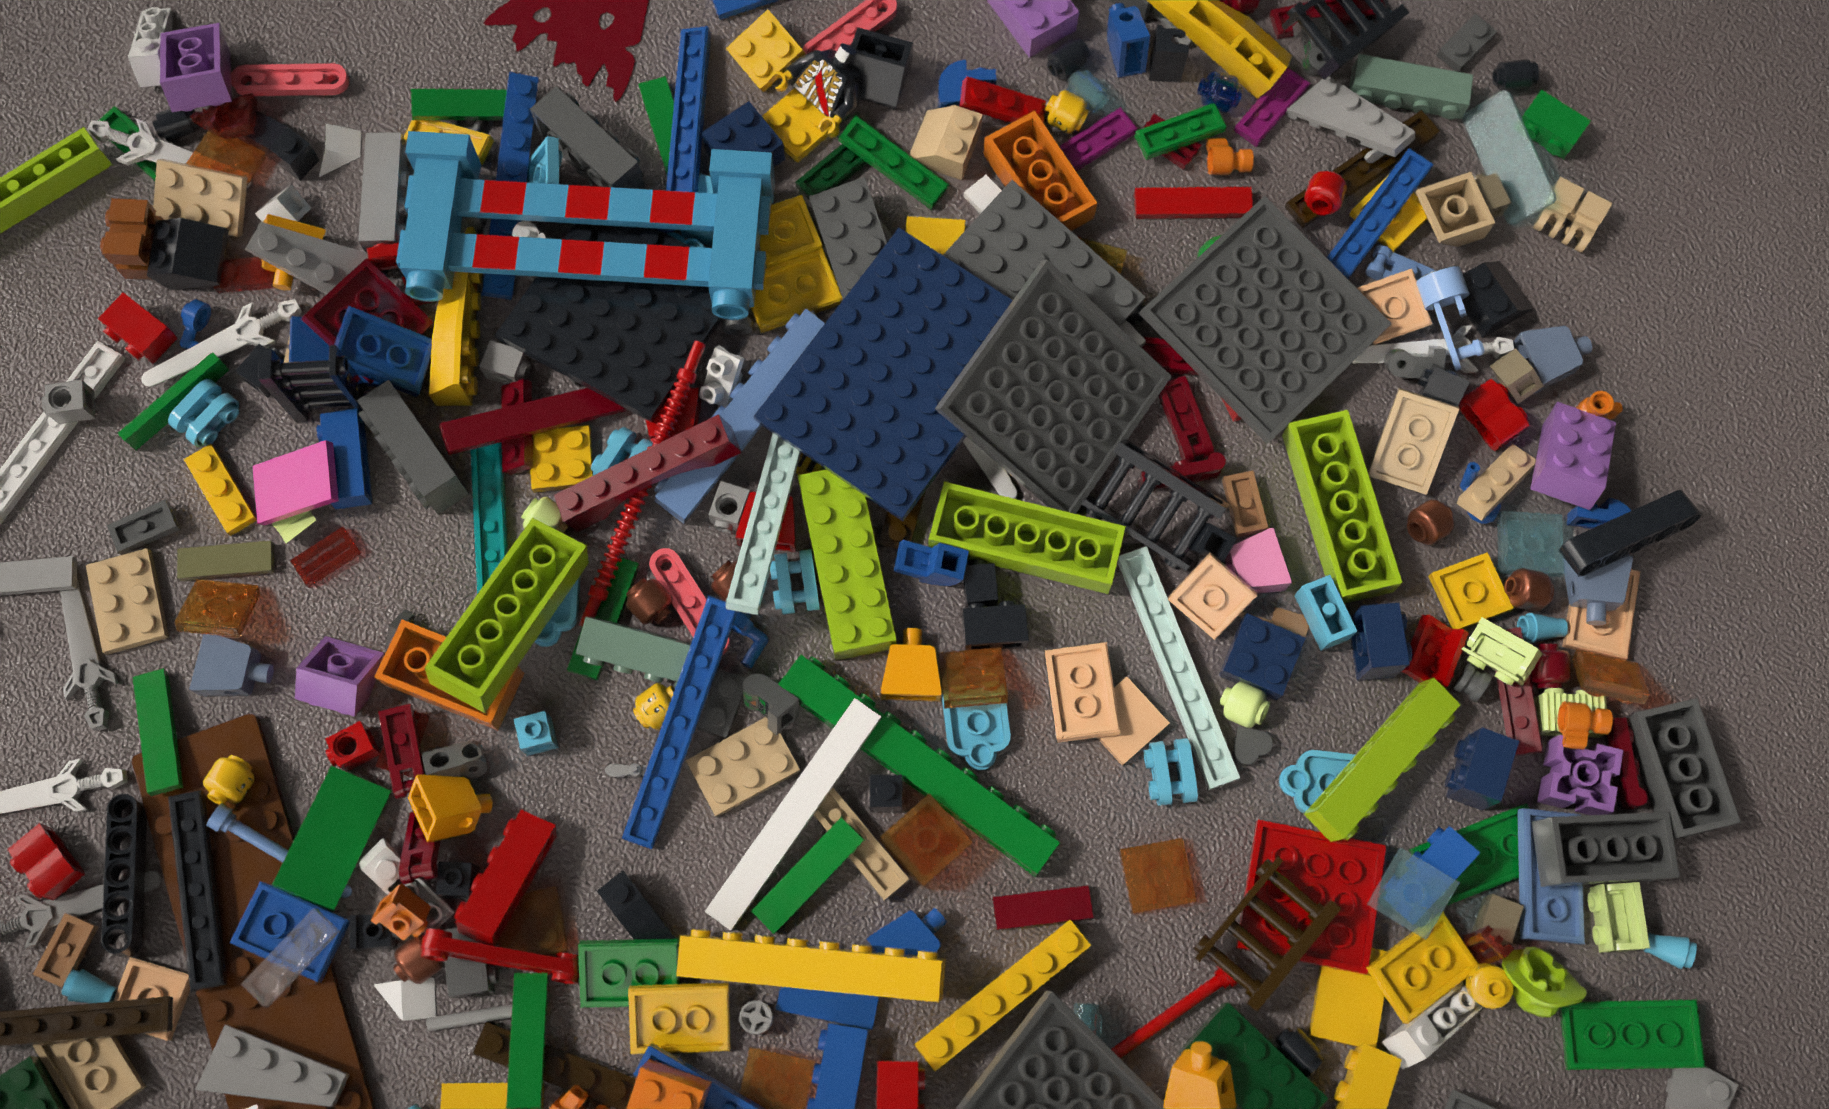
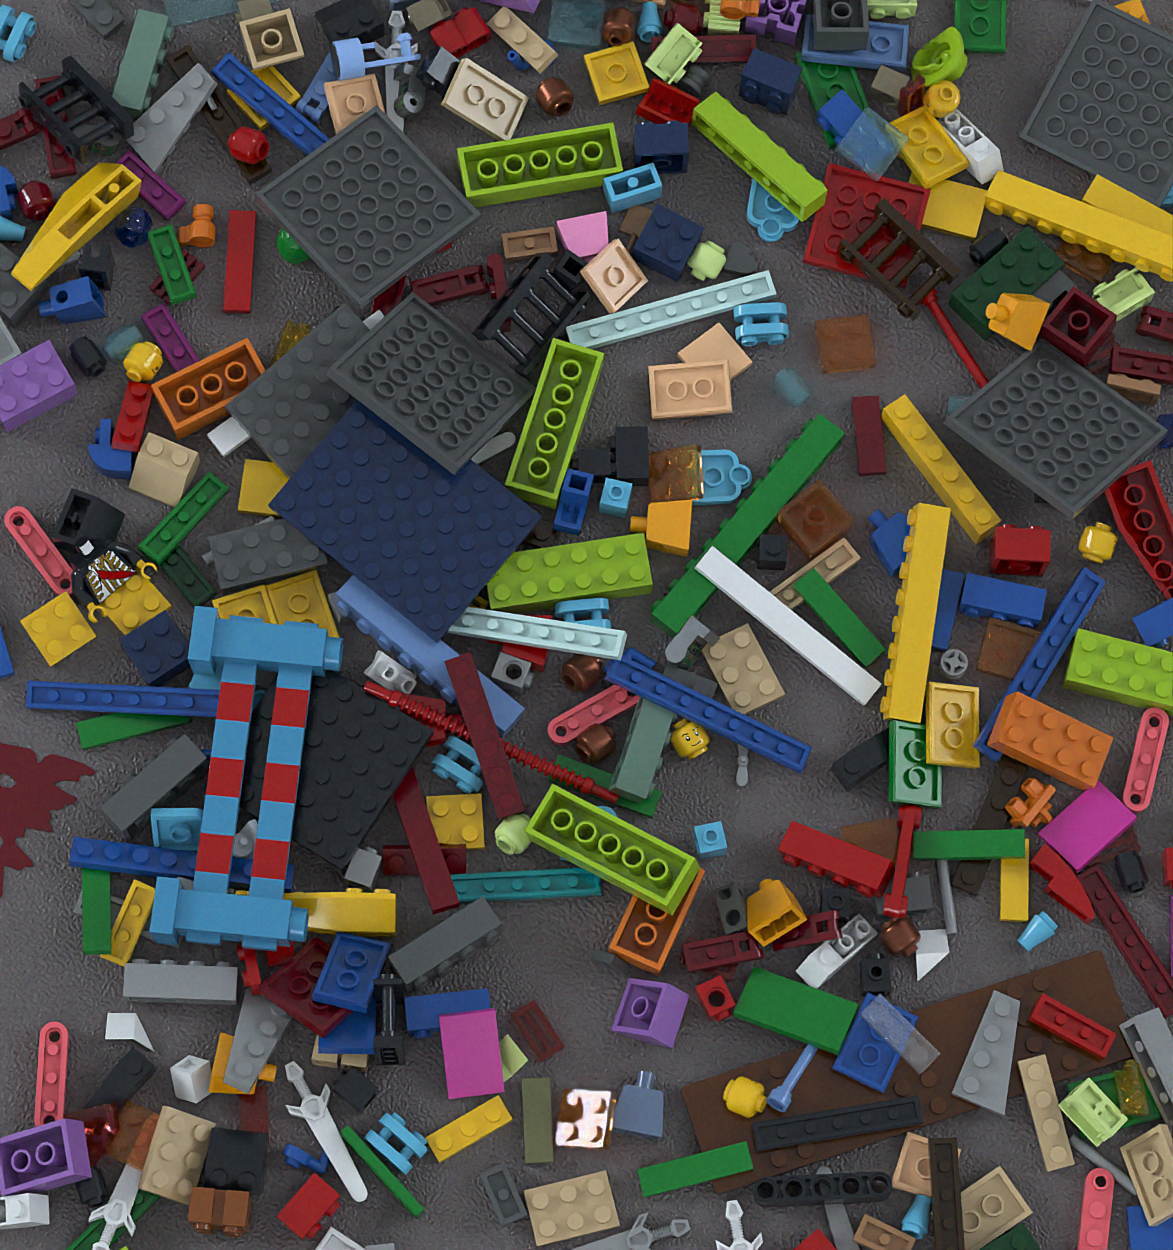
camera: 90 degrees left, 0 degrees up
(402, 912) = (868, 939): orange brick -> none
(942, 611) = (615, 497): none -> medium azure brick
(1095, 812) = (792, 386): none -> clear light blue brick

